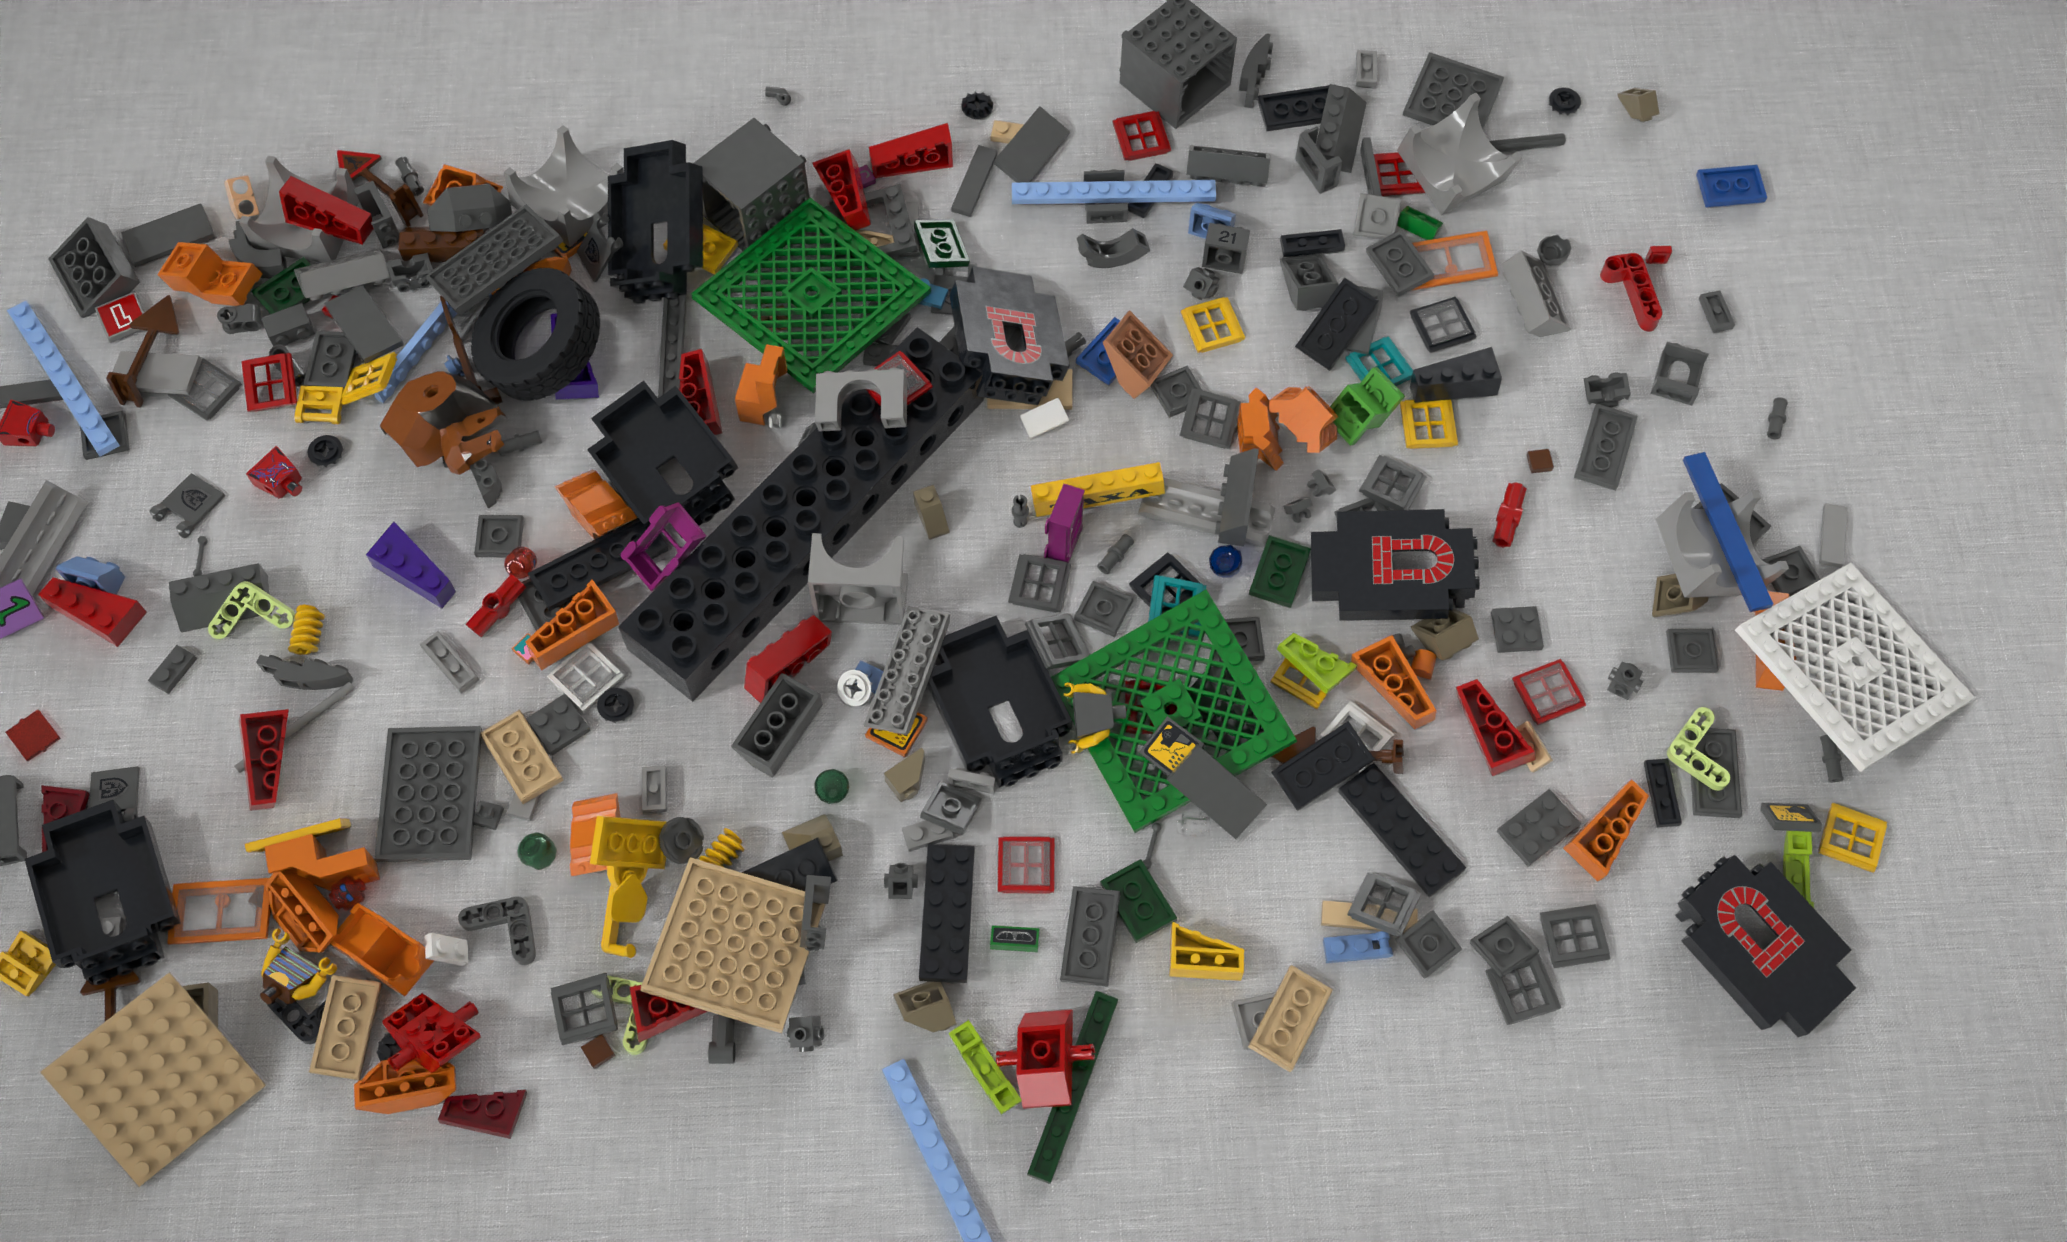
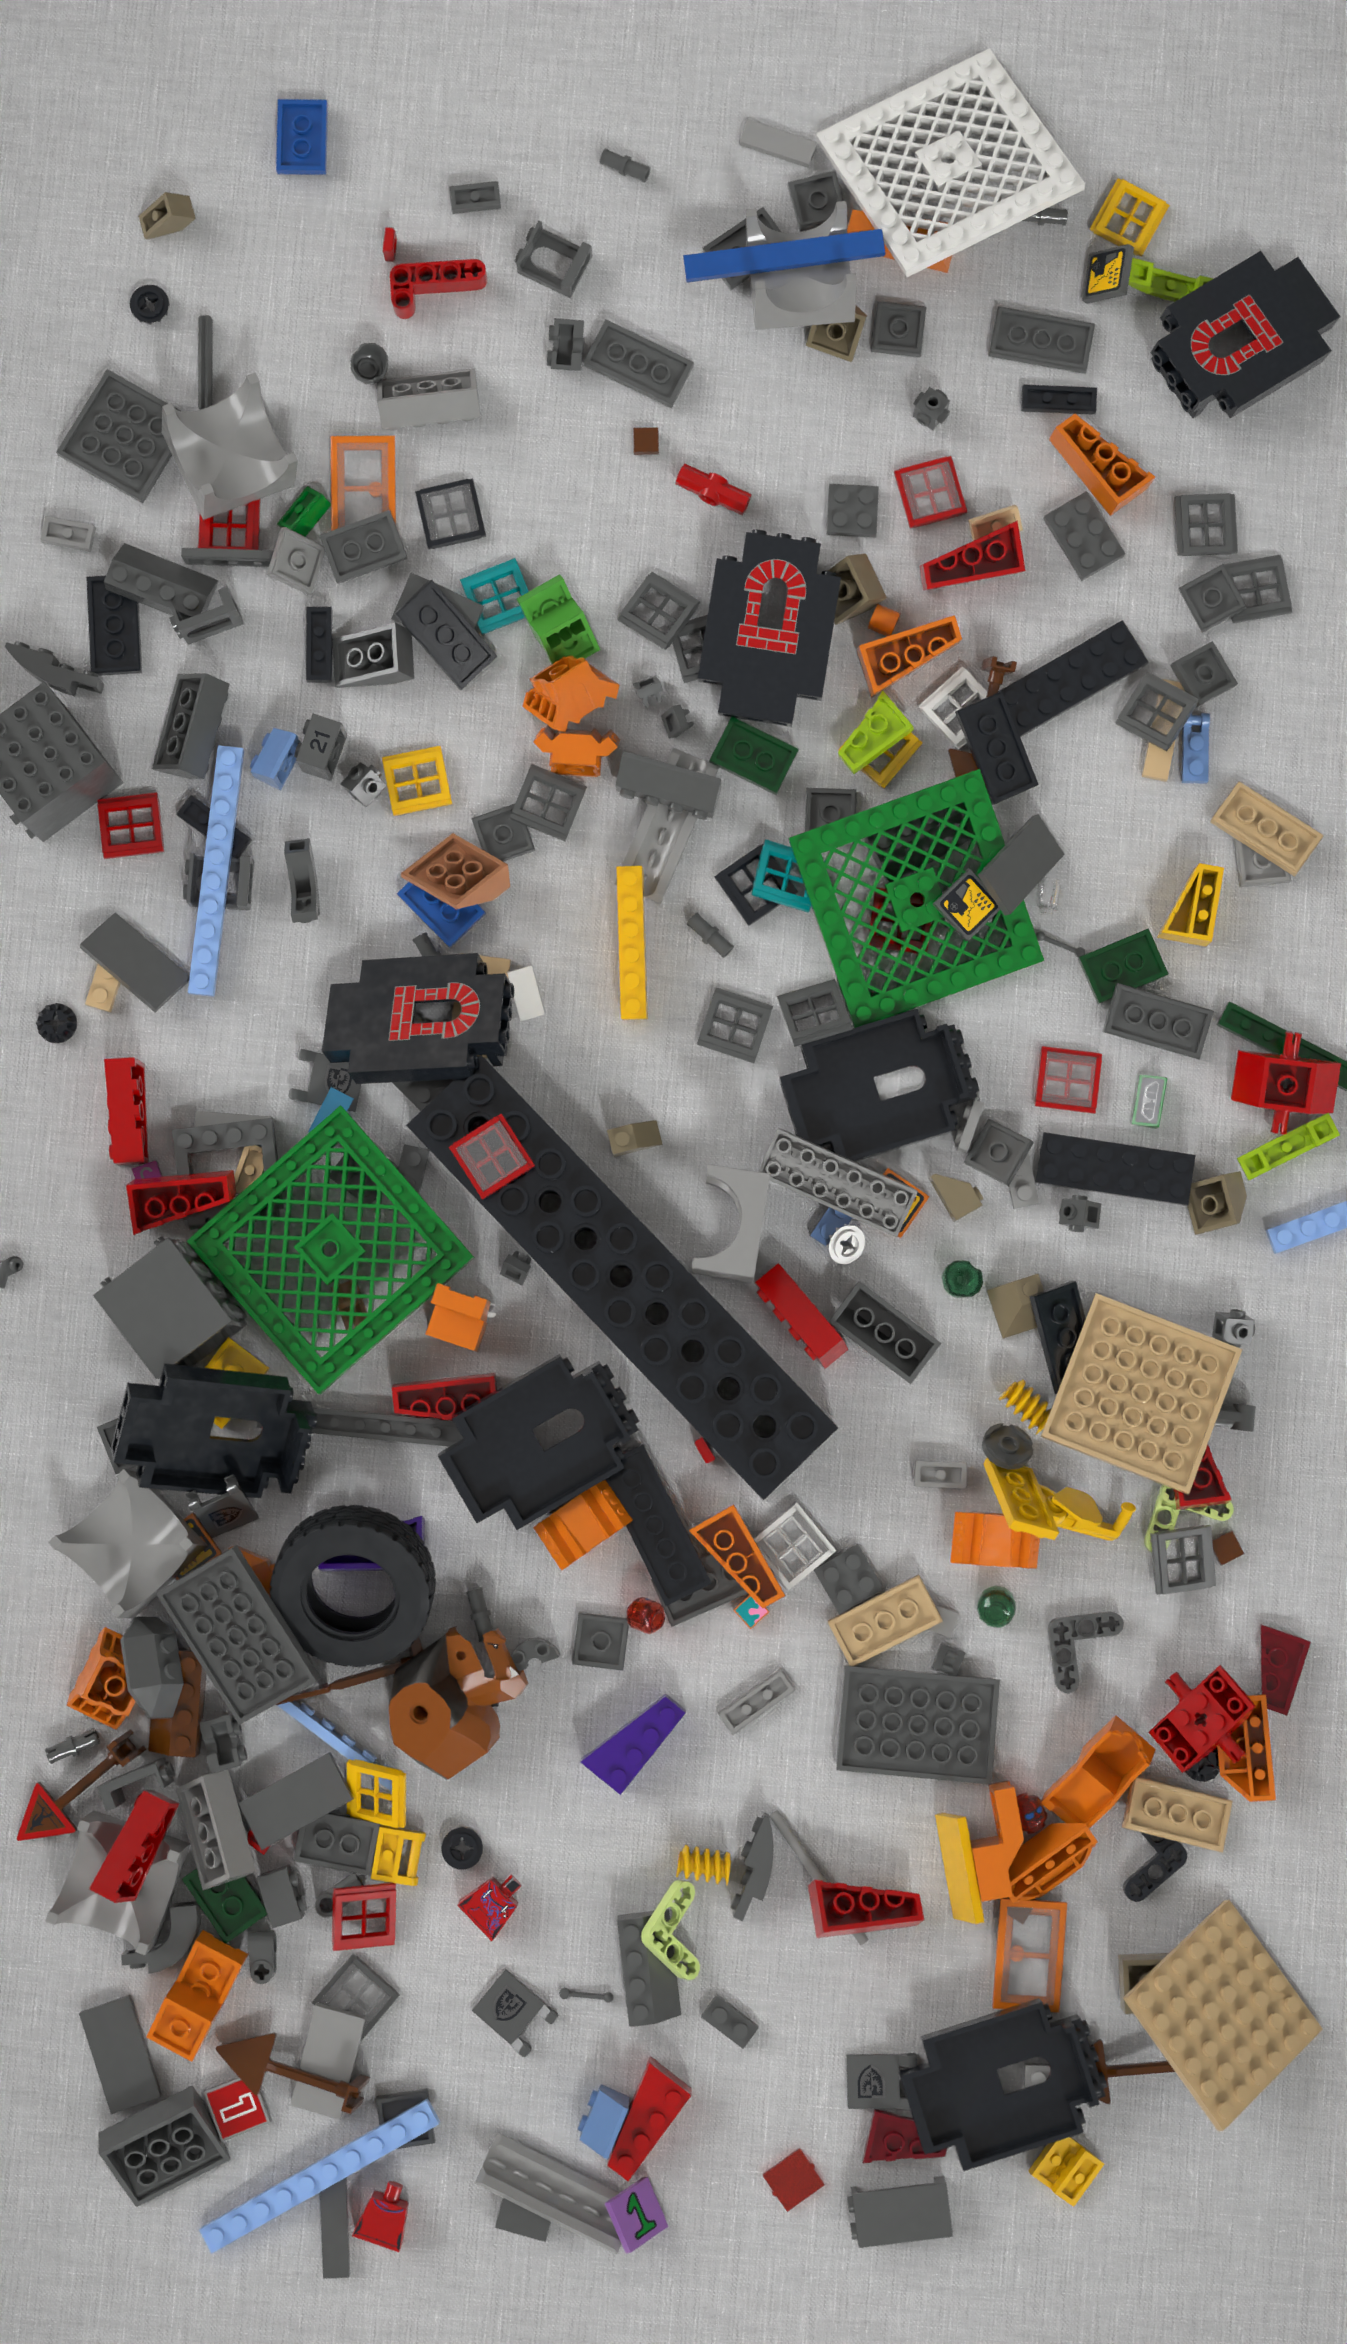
camera: 80 degrees left, 20 degrees up
(249, 195) = (64, 1970): light nougat piece -> none
(290, 975) = (1117, 1873): torso -> none
(446, 949) = (1106, 1704): white plate -> none
(454, 366) = (365, 1691): medium blue plate -> none
(505, 596) = (709, 1656): red piece -> none
(608, 699) = (841, 1522): black gear -> none
(642, 563) = (682, 1462): magenta piece -> none
(816, 891) = (1124, 1311): dark grey panel -> none
(835, 387) = (498, 1229): light grey arch -> none
(941, 243) = (267, 1087): plate -> none
(974, 181) = (171, 1038): dark grey tile -> none
(1020, 511) = (650, 1029): dark grey pin -> none
(1064, 517) = (686, 979): magenta piece -> none
(1092, 714) = (916, 985): dark grey torso -> none
(1103, 608) = (774, 958): dark grey tile -> none
(1225, 561) = (737, 813): clear blue hair -> none
(1407, 651) = (871, 634): dark grey arm -> none
(1447, 421) = (582, 533): yellow piece -> none
(1457, 378) = (533, 504): black wedge -> none
(1688, 748) = (1017, 359): yellowish green beam -> none

